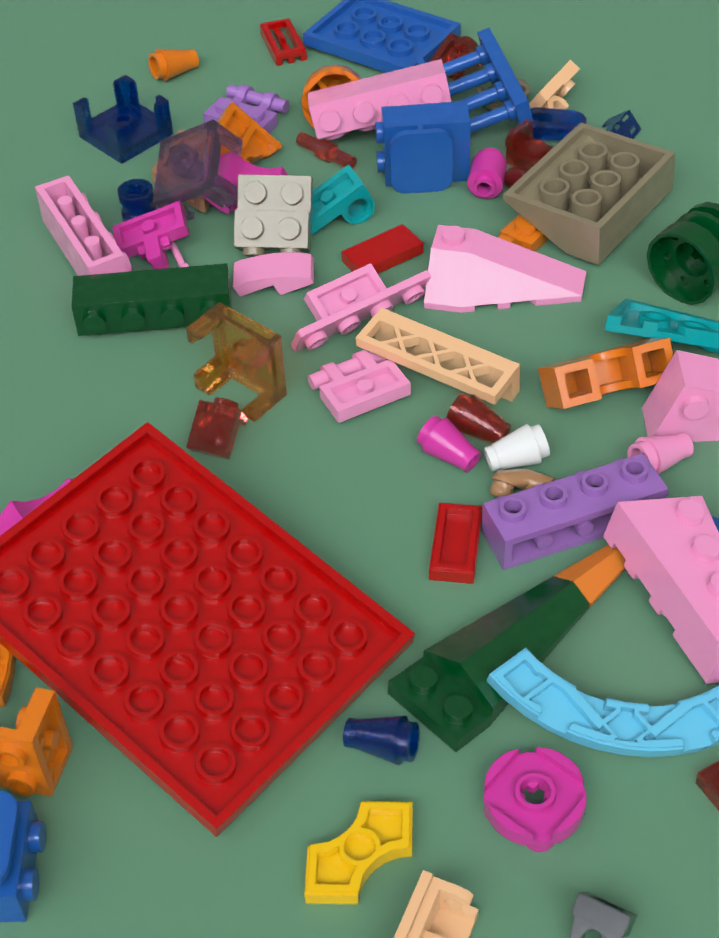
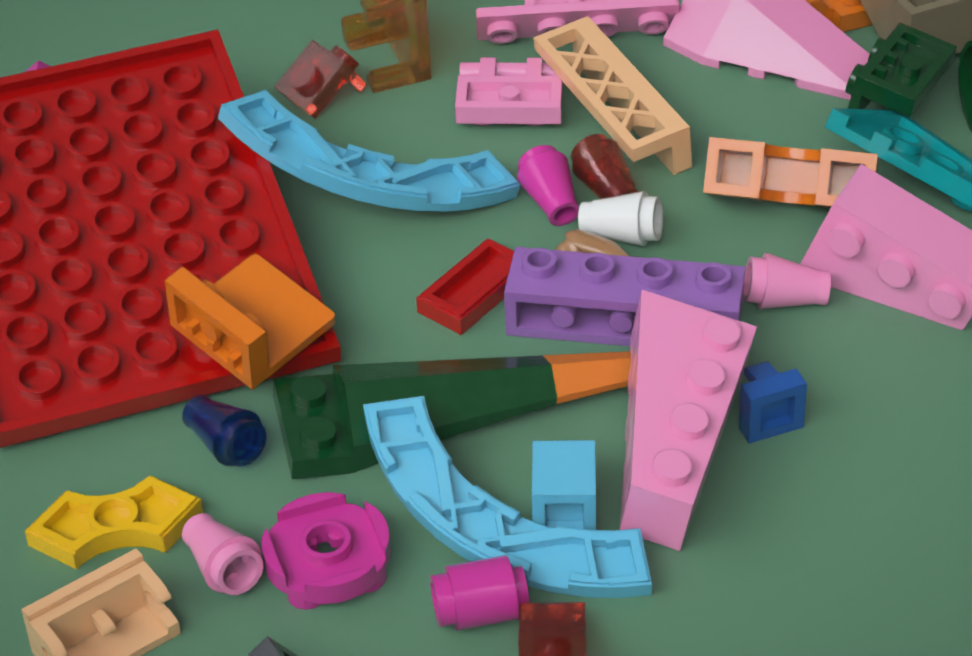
camera: 30 degrees right, 5 degrees down
(319, 492) = (361, 173): none -> medium azure tile
(348, 643) = (248, 318): none -> orange bracket
(469, 839) = (224, 556): none -> bright pink cone
(611, 271) = (900, 70): none -> dark green bracket
(656, 669) = (564, 483): none -> medium azure brick
(669, 779) = (478, 593): none -> dark pink brick

